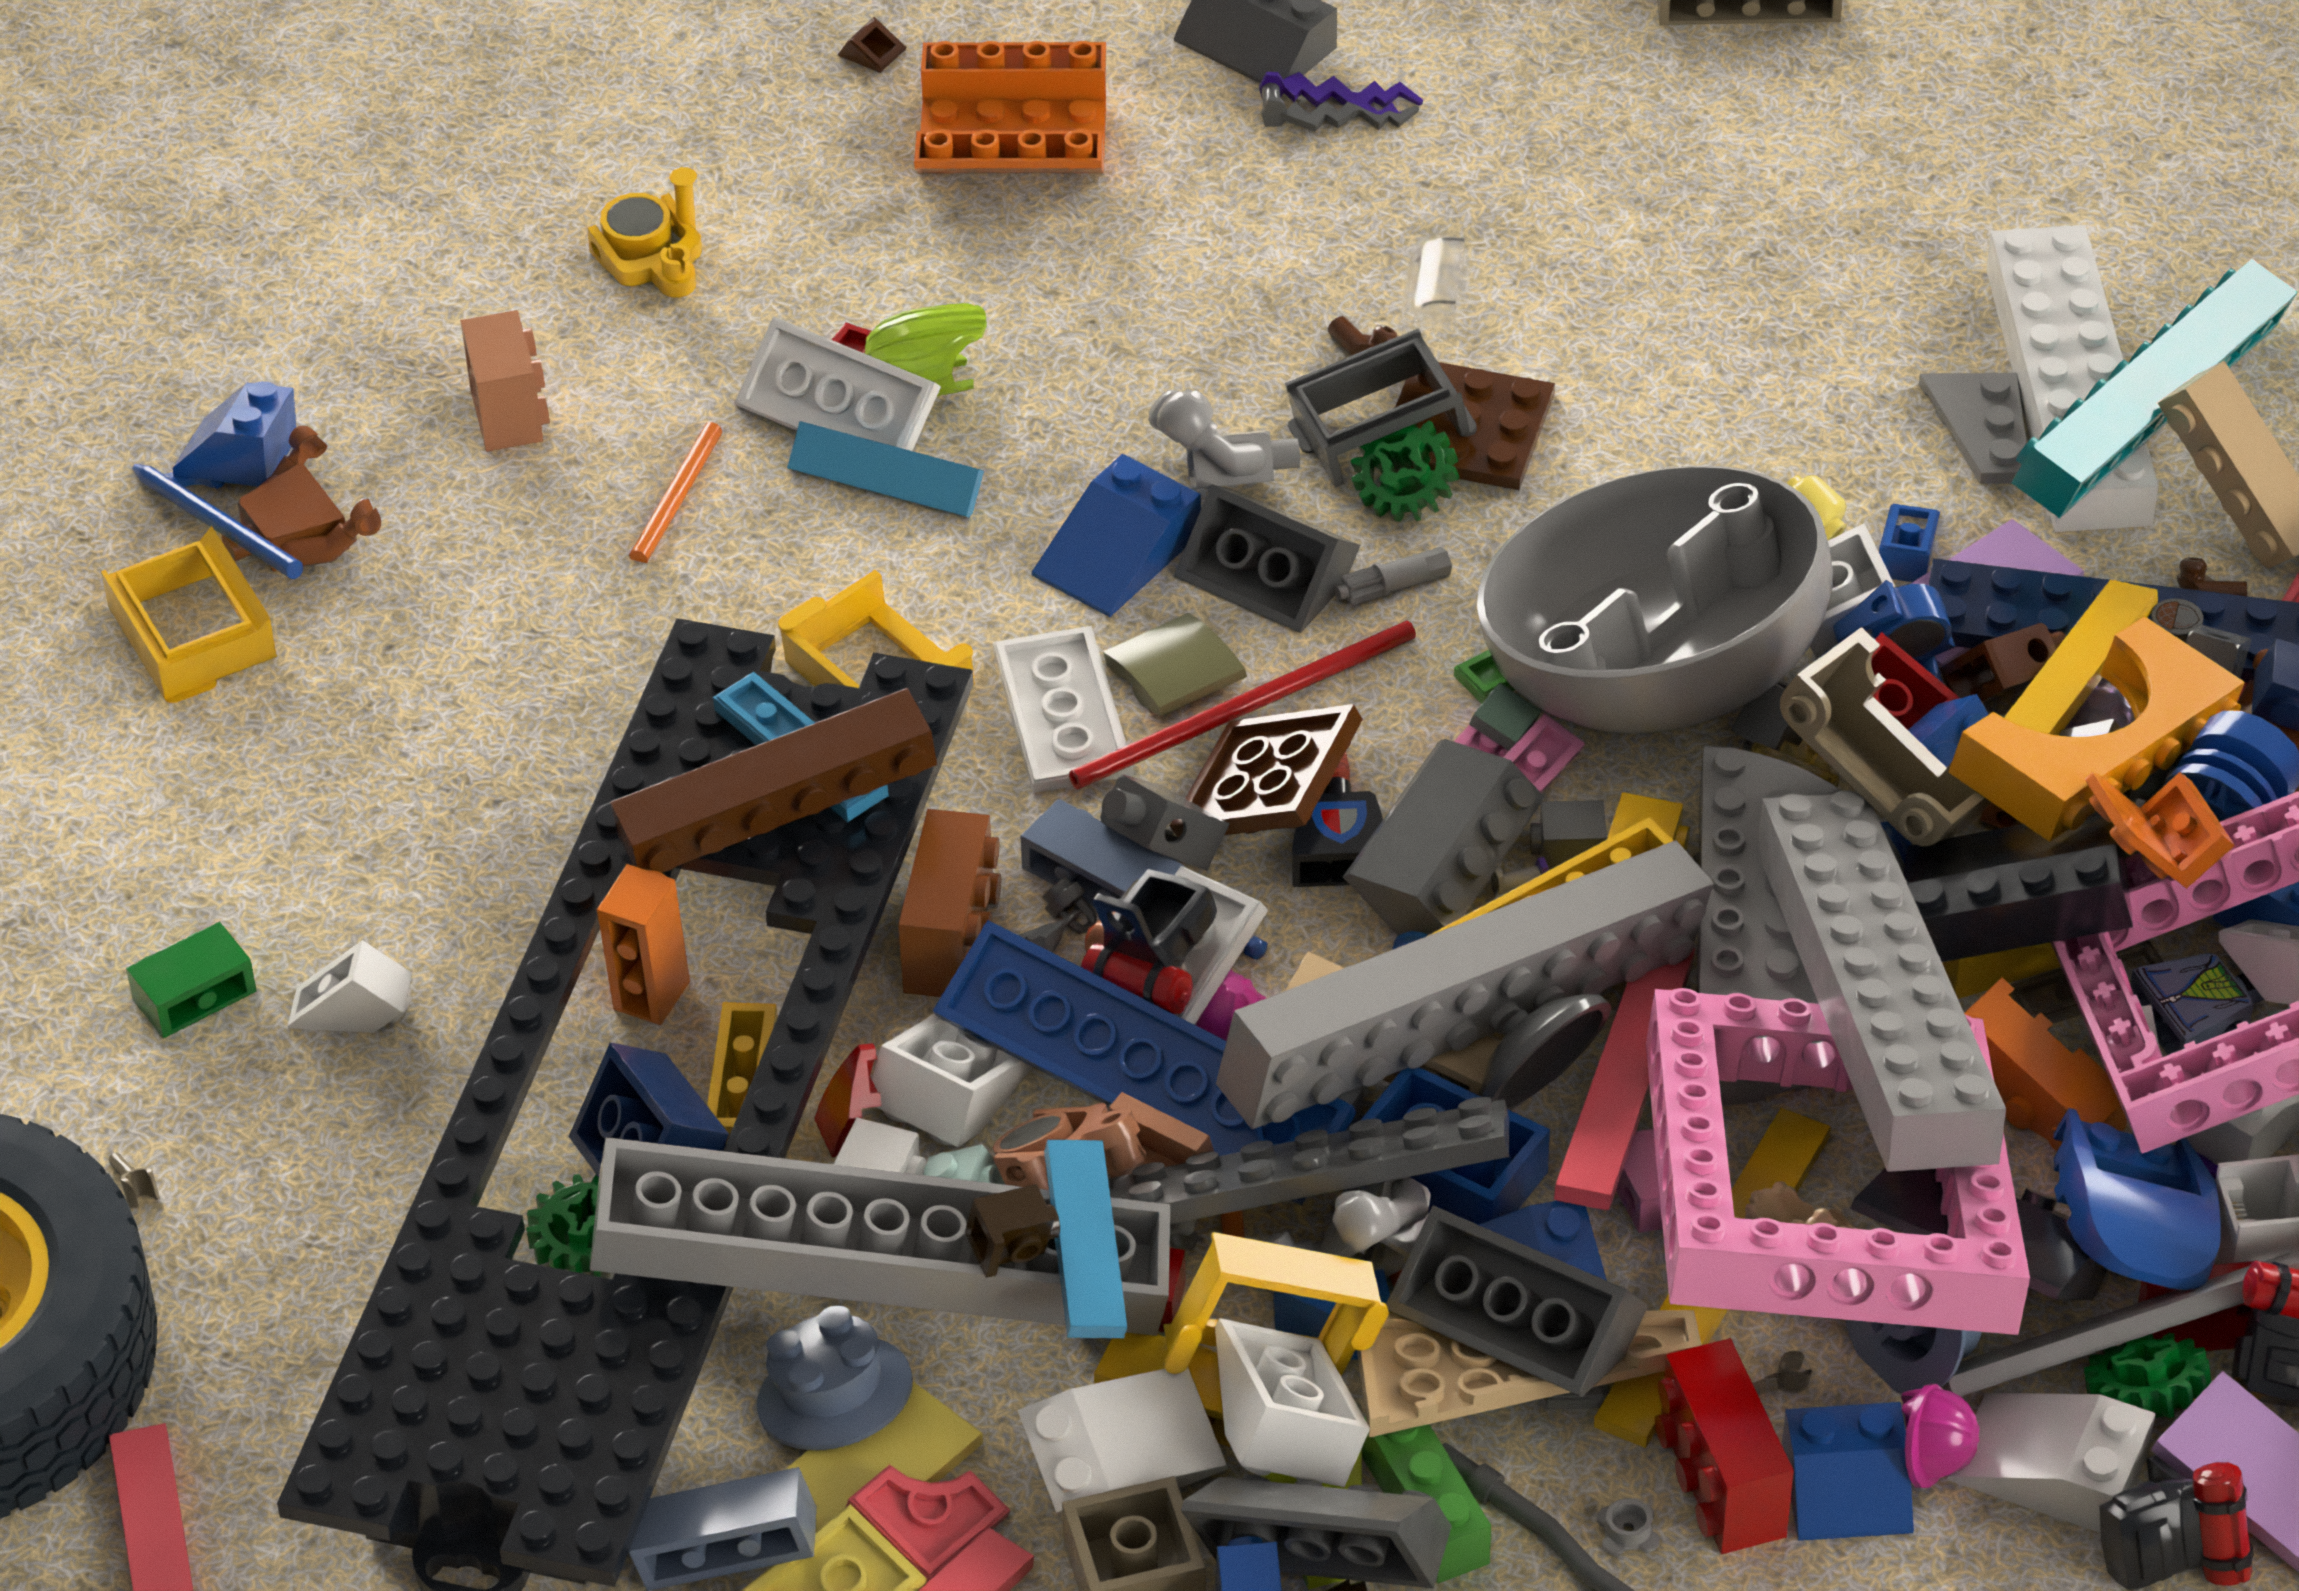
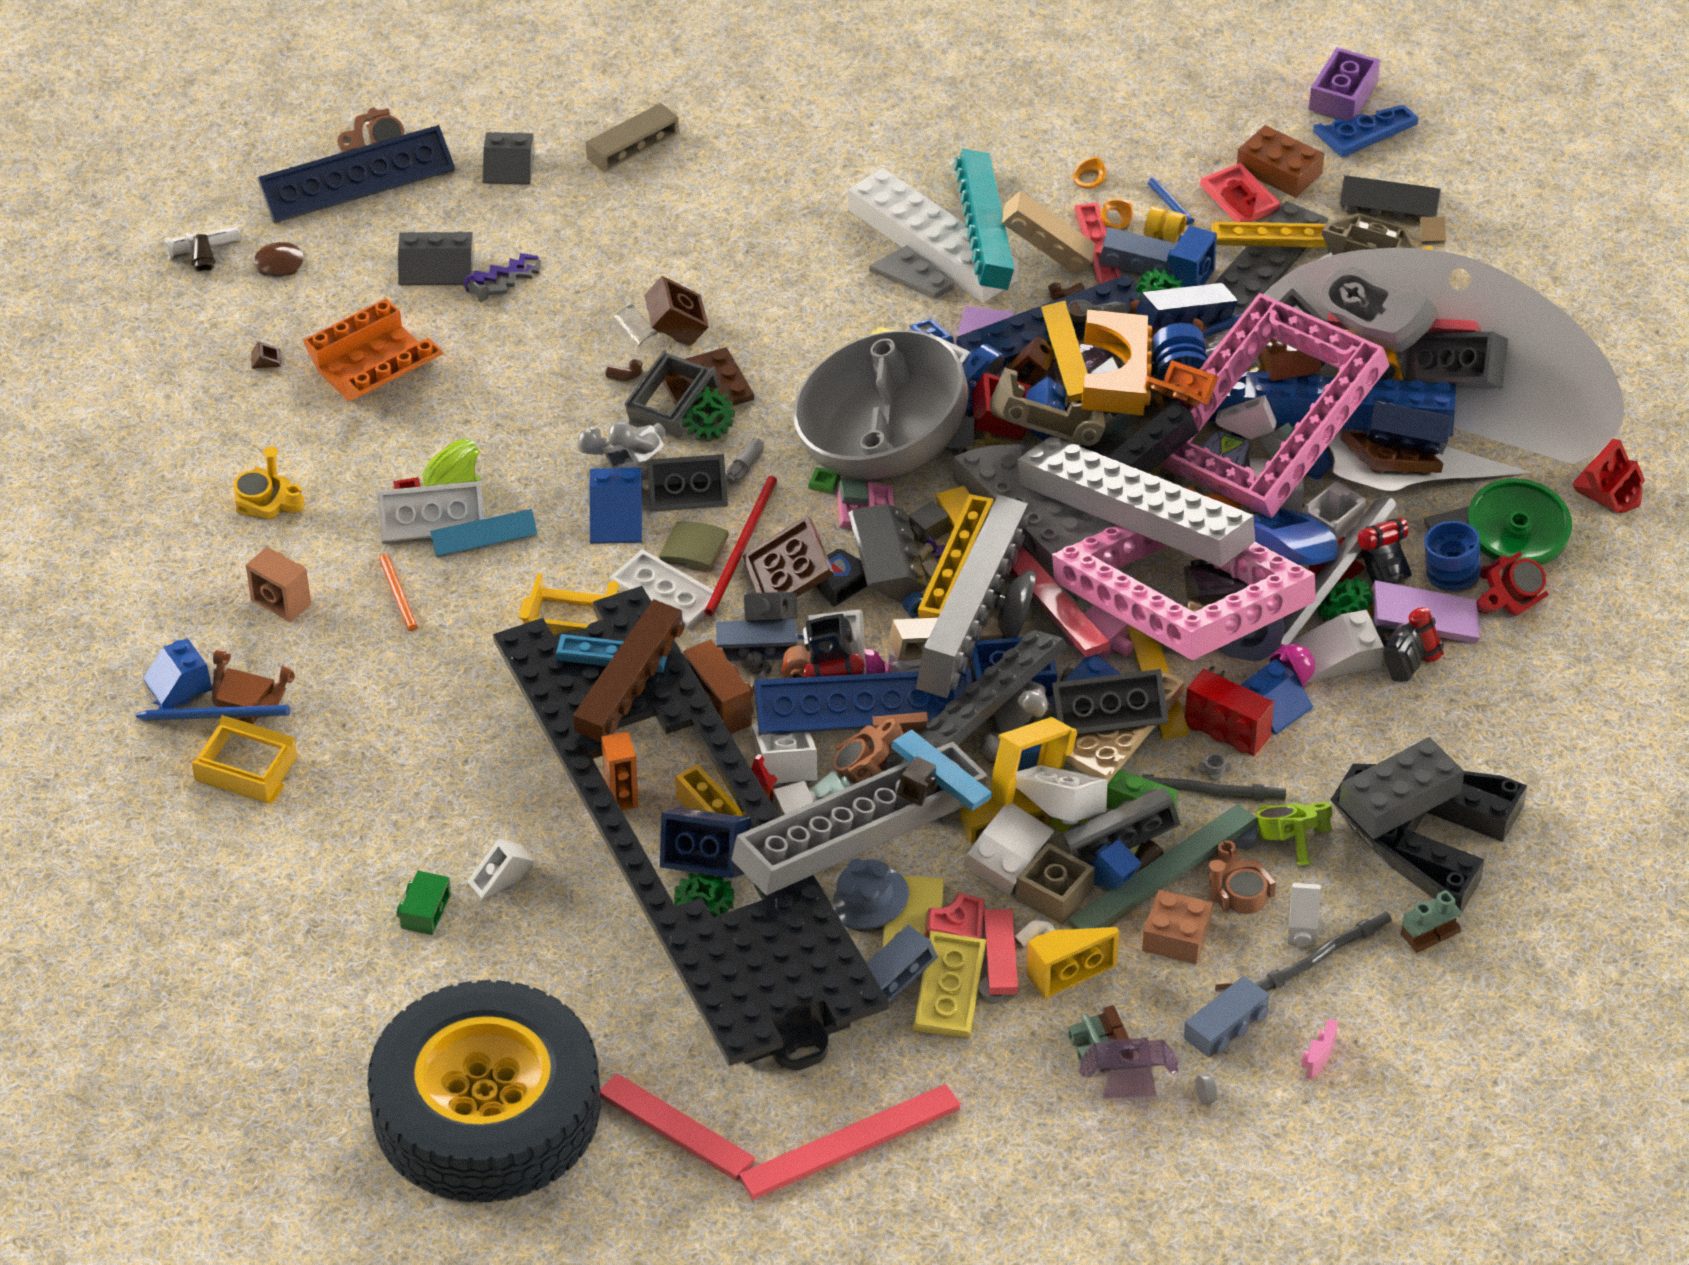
camera: 40 degrees left, 0 degrees up
(1516, 282) = (676, 311): none -> reddish brown brick

